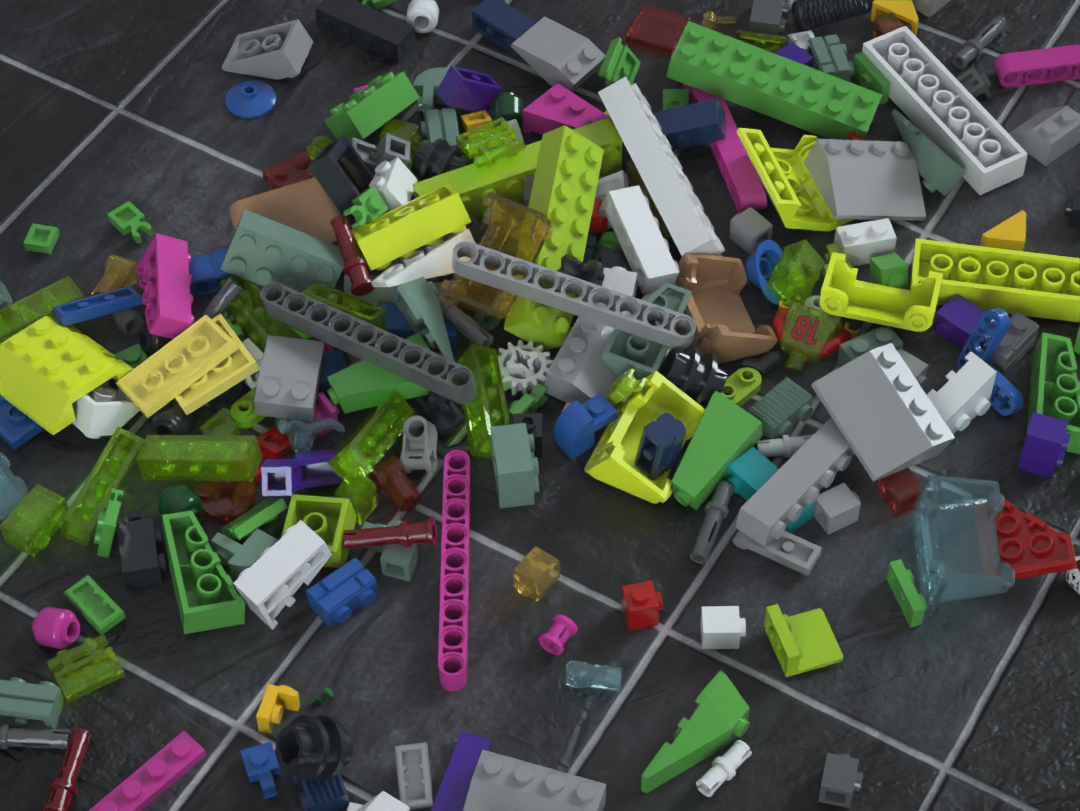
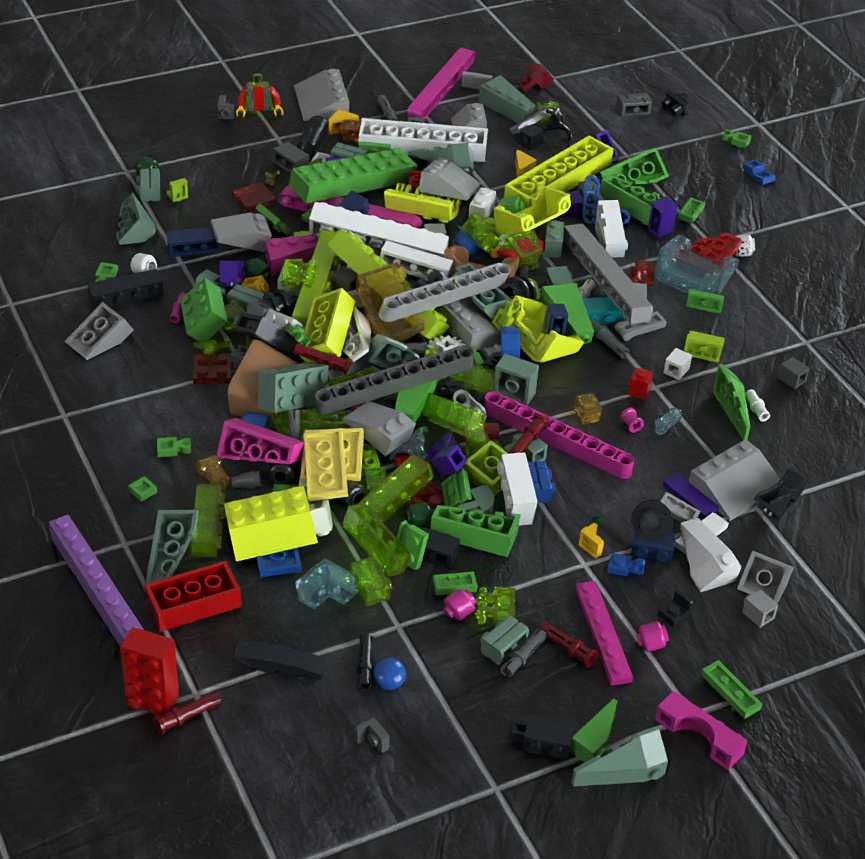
camera: 60 degrees left, 10 degrees down
(96, 306) = (235, 481): blue tile -> none
(250, 99) = (123, 360): blue dish -> none
(883, 412) = (609, 241): light grey slope -> none

